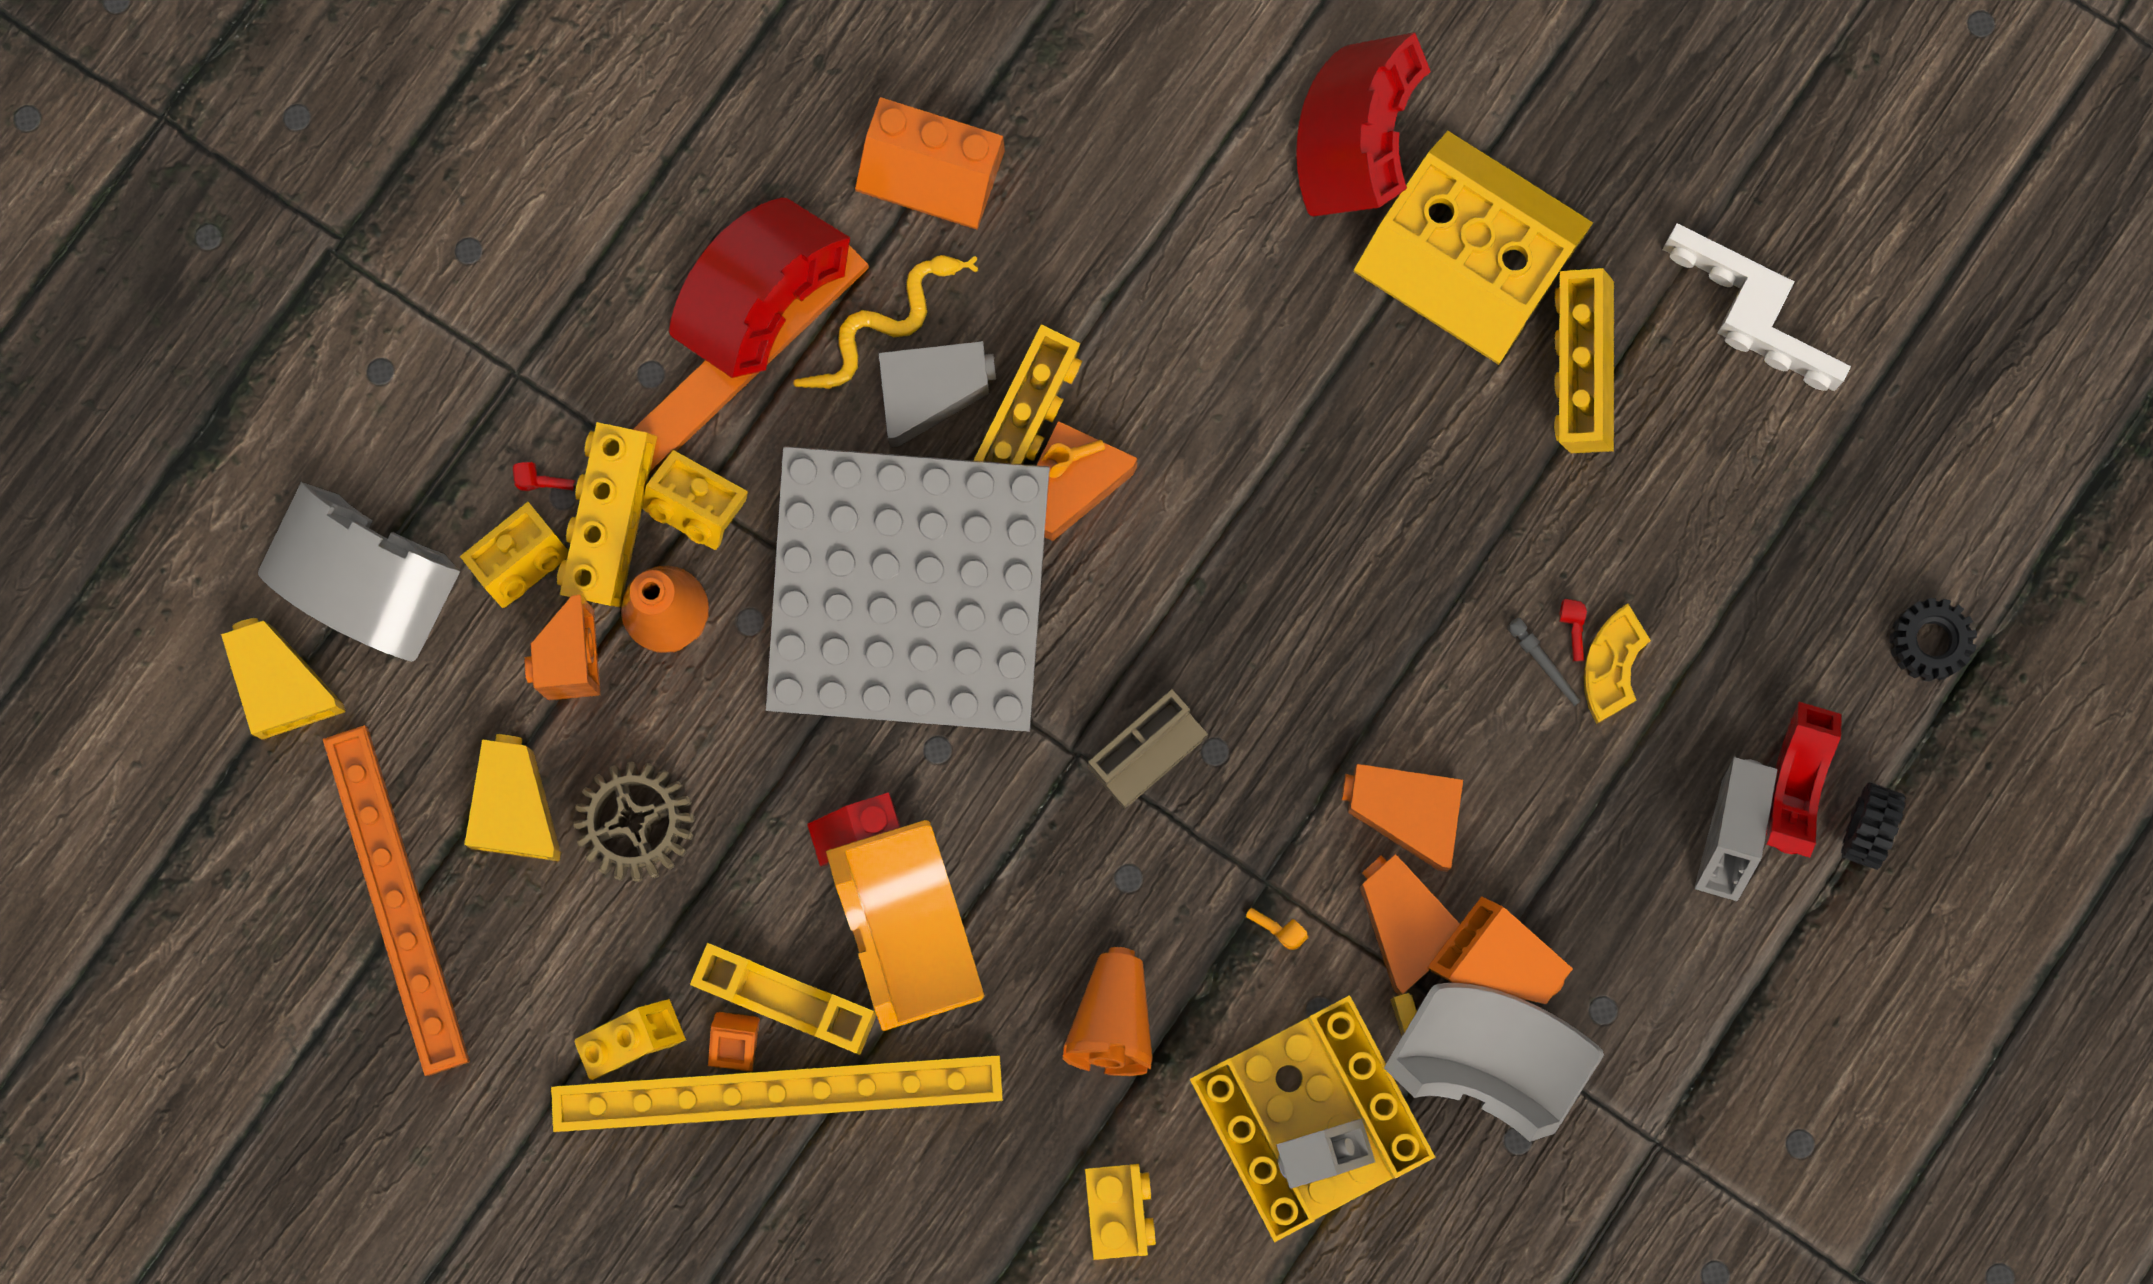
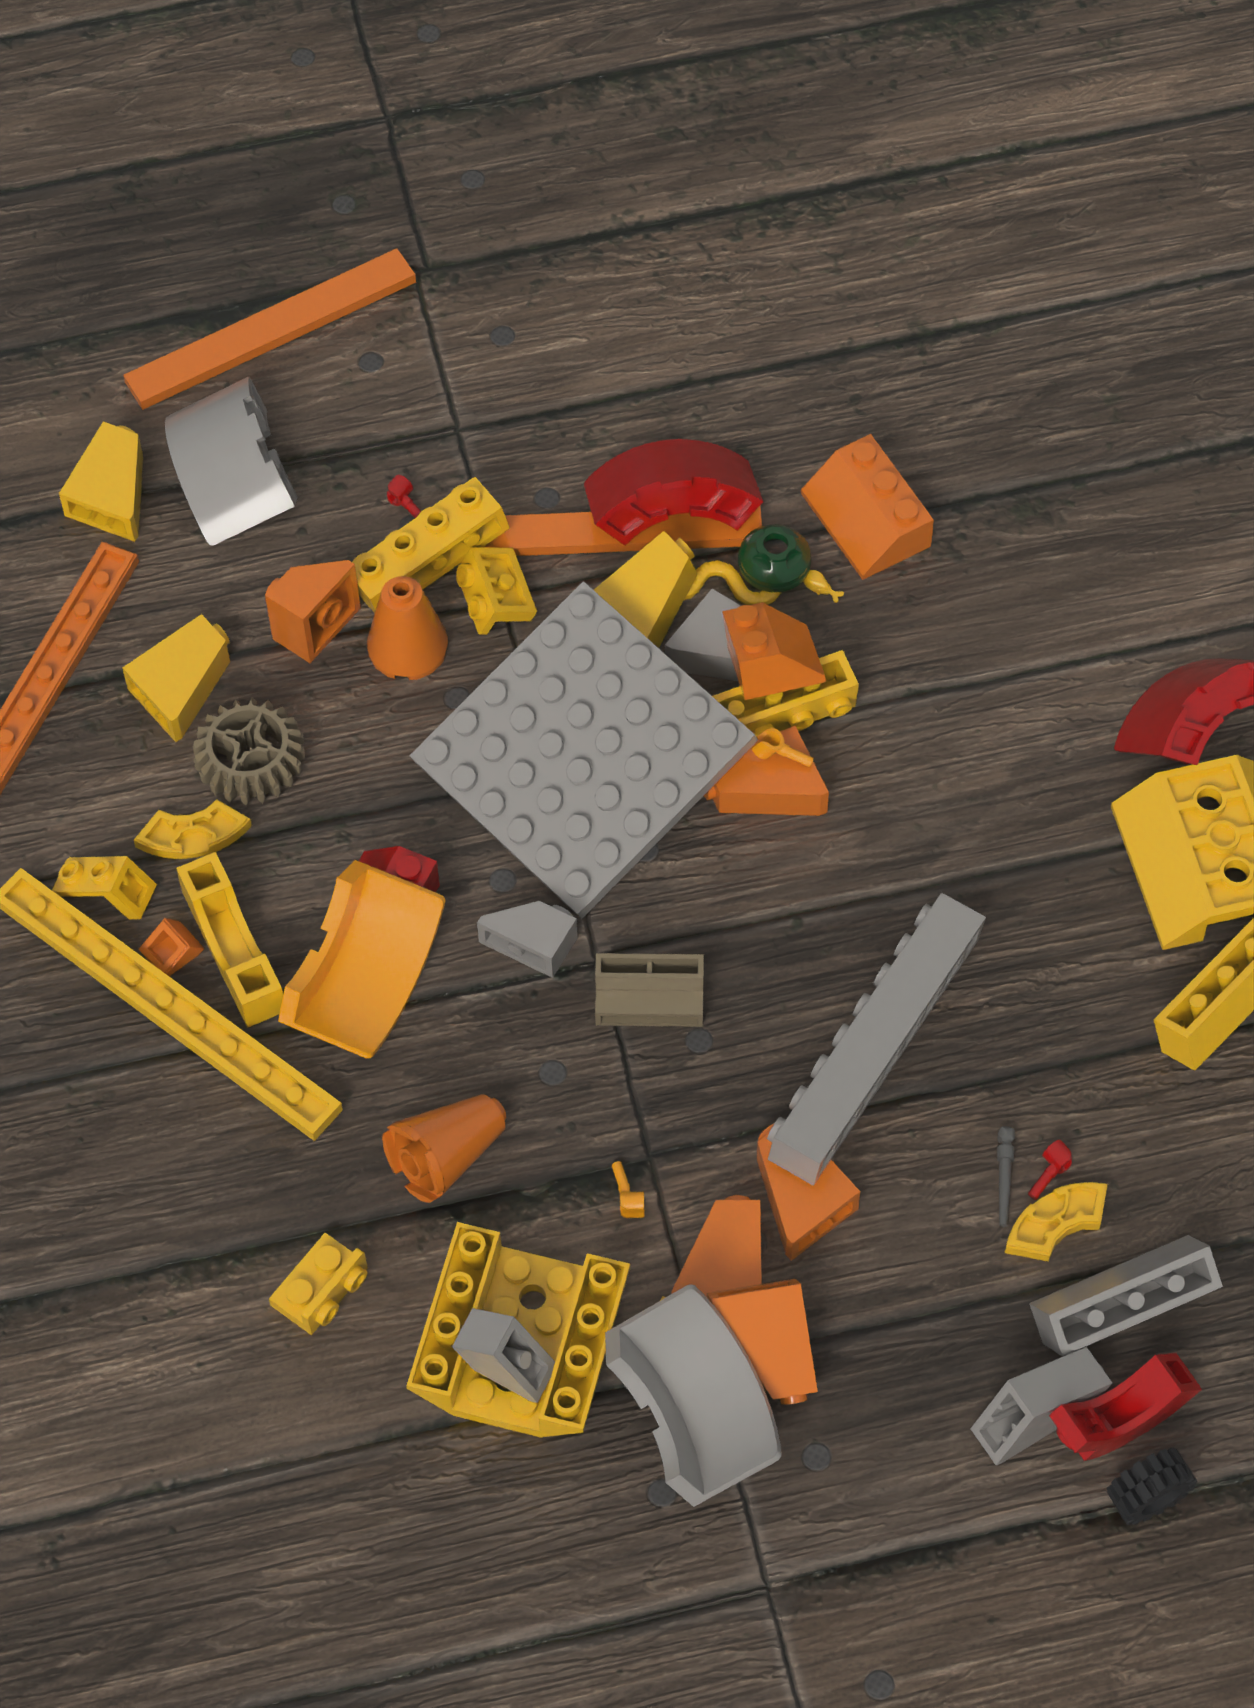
camera: 40 degrees right, 20 degrees down
(265, 415) = (269, 328): none -> orange tile
(515, 555) = (339, 530): yellow bracket -> none
(656, 929) = (194, 833): none -> yellow tile
(827, 399) = (651, 586): none -> yellow slope
(902, 296) = (774, 571): none -> dark green piece
(991, 378) = (770, 651): none -> orange slope
(1012, 781) = (531, 934): none -> light grey slope
(1364, 641) = (875, 1039): none -> light grey brick
(1725, 687) = (1125, 1295): none -> light grey brick

